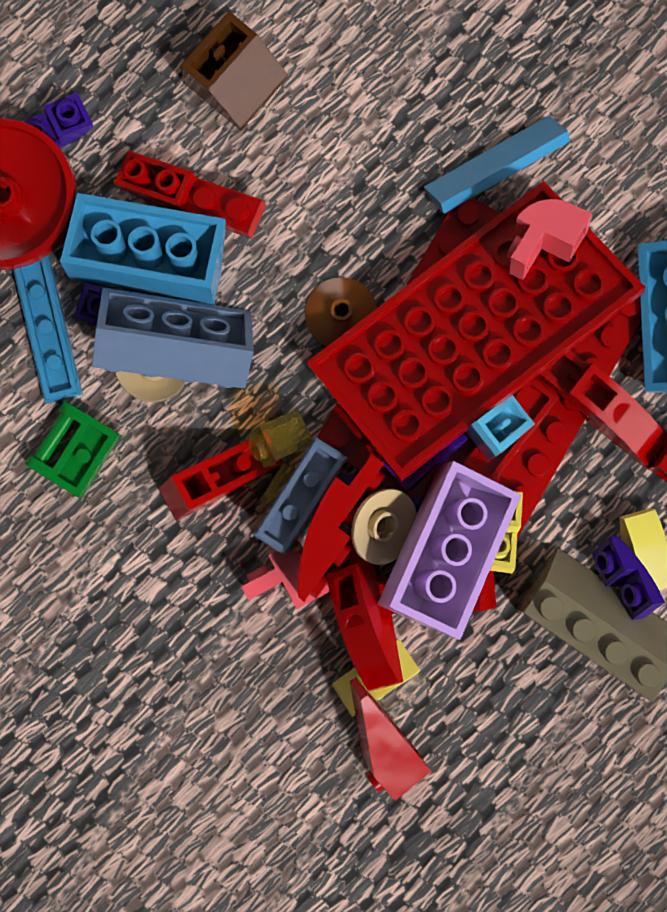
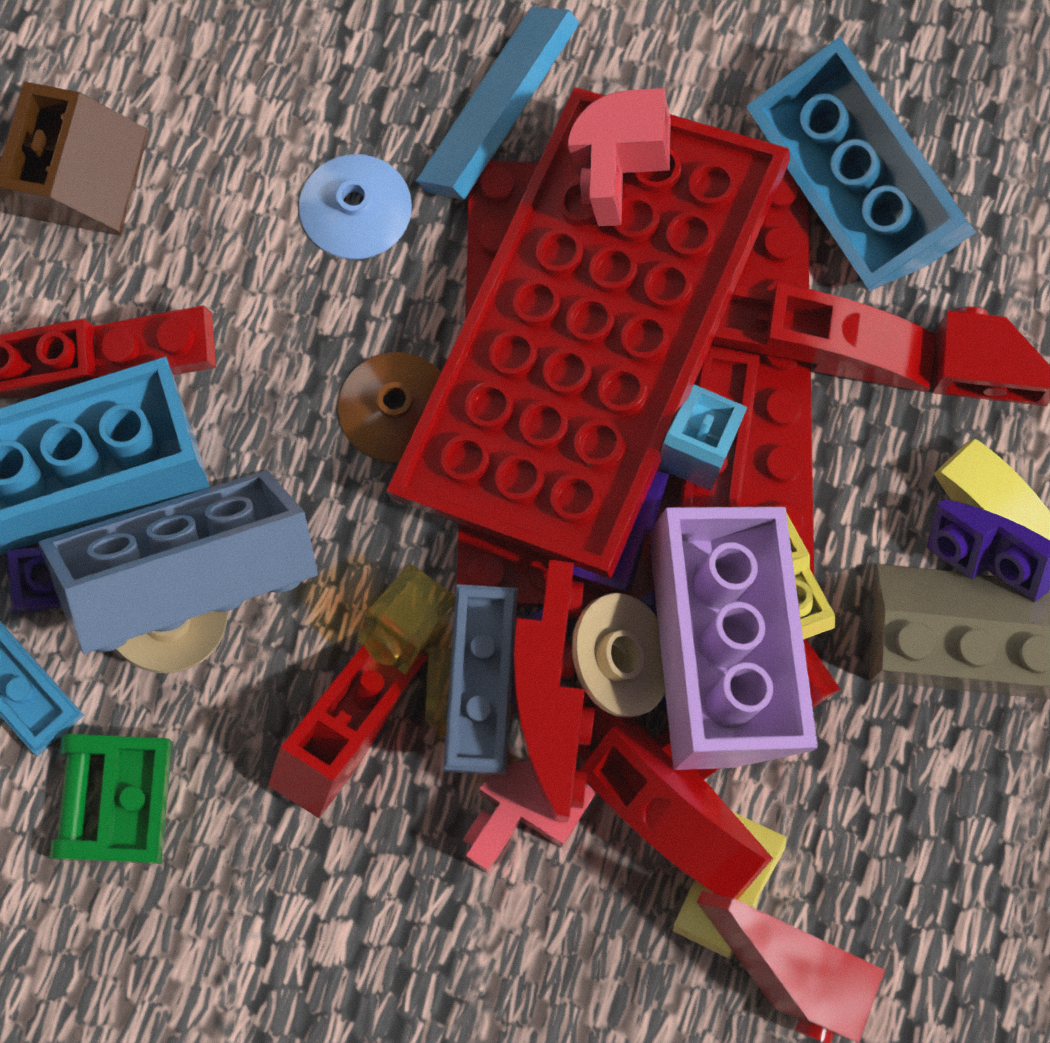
camera: 30 degrees left, 10 degrees down
(377, 199) = (355, 229): none -> light blue dish

